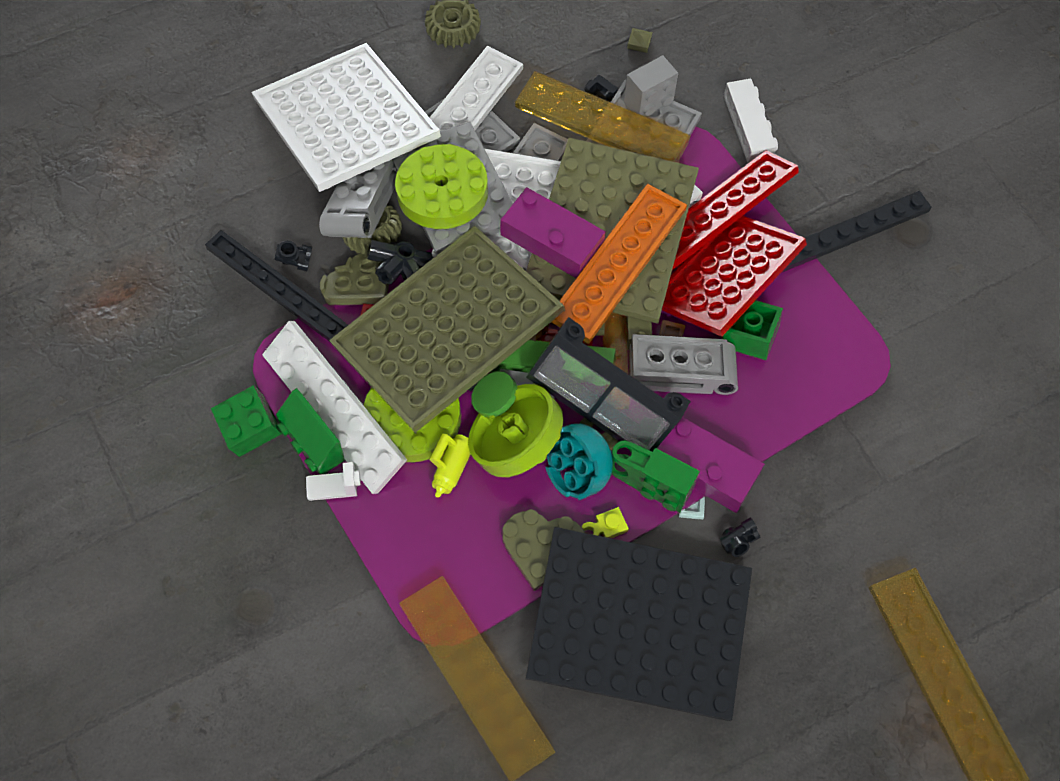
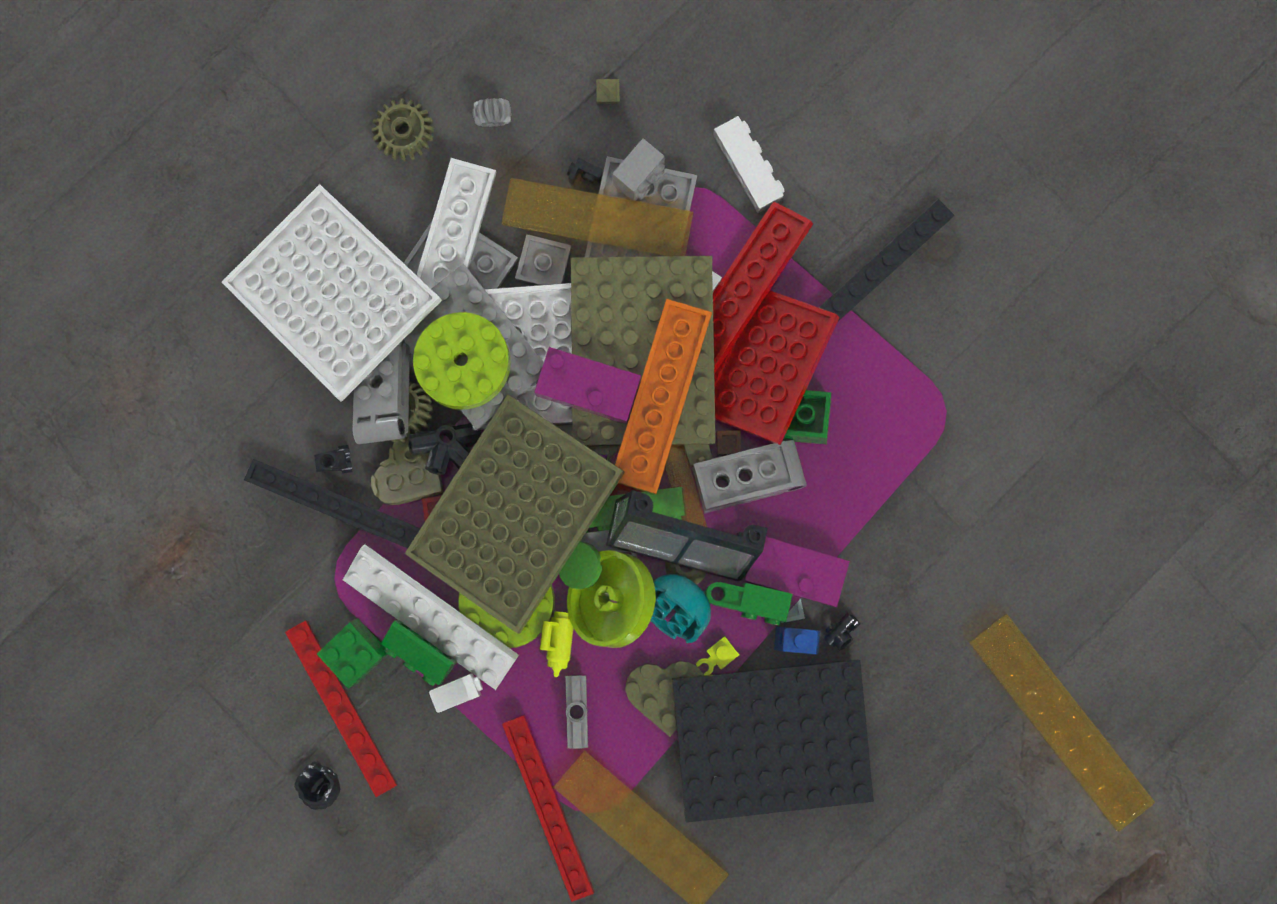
camera: 15 degrees left, 20 degrees up
(162, 536) = (317, 786): none -> black hair
(215, 478) = (341, 710): none -> red plate
(386, 627) = (548, 808): none -> red plate
(443, 550) = (576, 727): none -> light grey piece
(534, 25) = (492, 112): none -> light grey gear
(692, 532) = (797, 640): none -> blue torso

